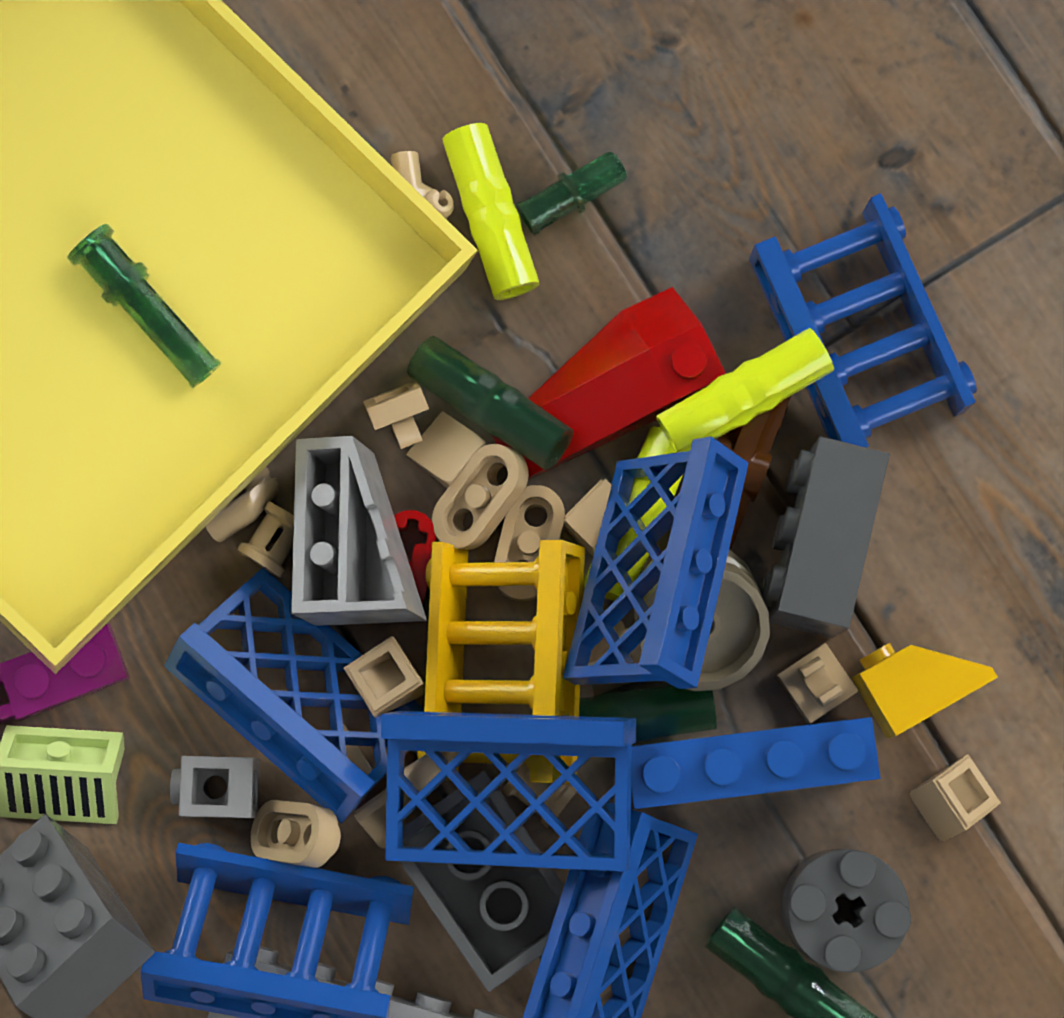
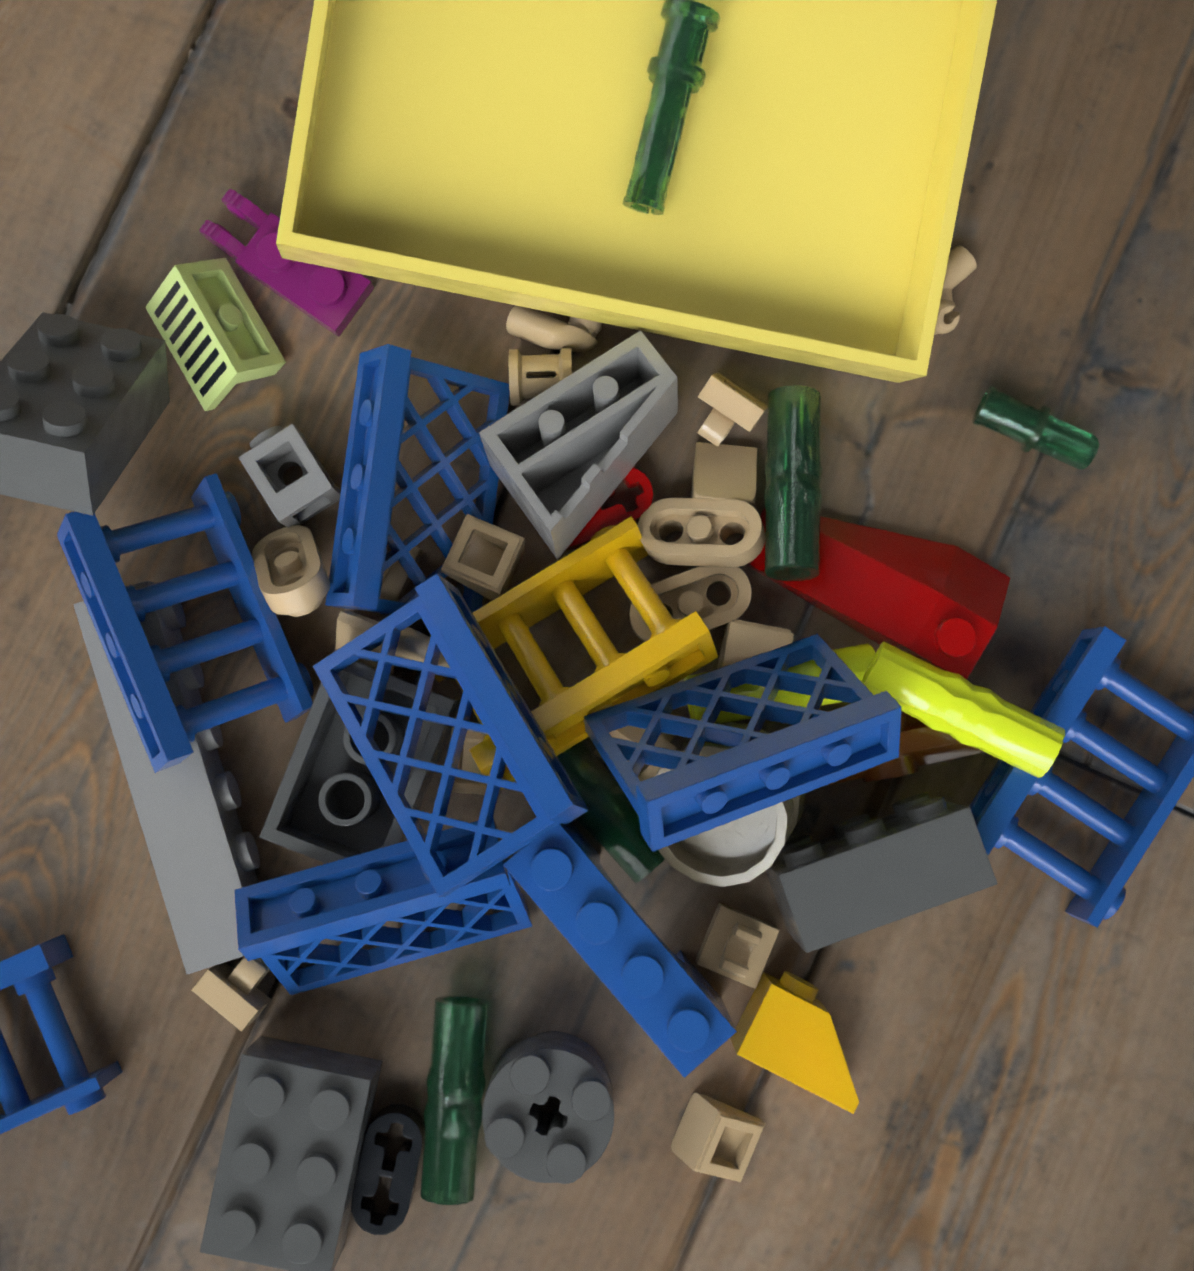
camera: 55 degrees right, 5 degrees up
(490, 211) = (969, 367): neon yellow axle -> none

